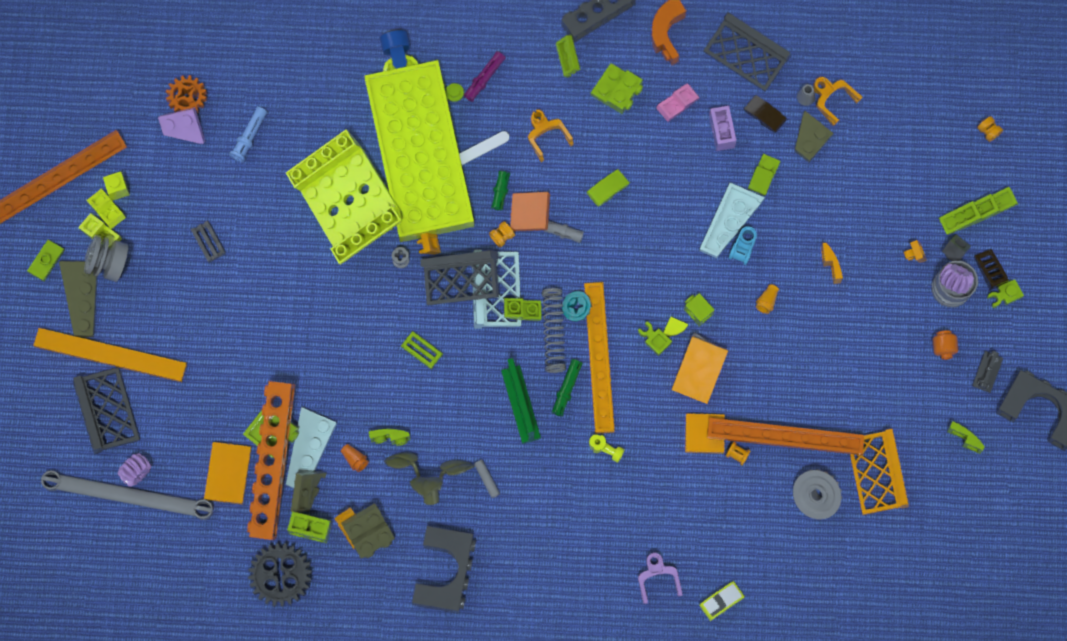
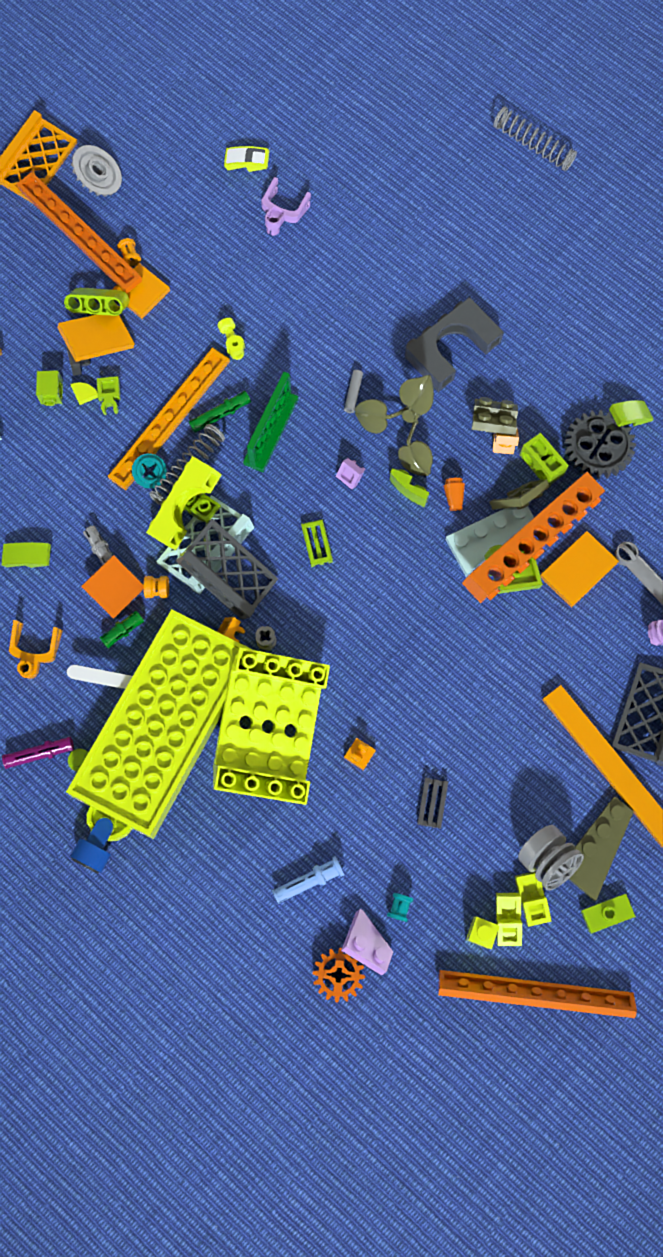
camera: 140 degrees left, 0 degrees up
(179, 162) = (400, 907): none -> teal bush
(274, 616) = (631, 412): none -> lime slope
(279, 235) = (359, 754): none -> light orange tile
(438, 413) = (350, 473): none -> lavender tile
(527, 277) = (194, 480): none -> neon yellow arch
(723, 395) = (89, 306): none -> lime beam

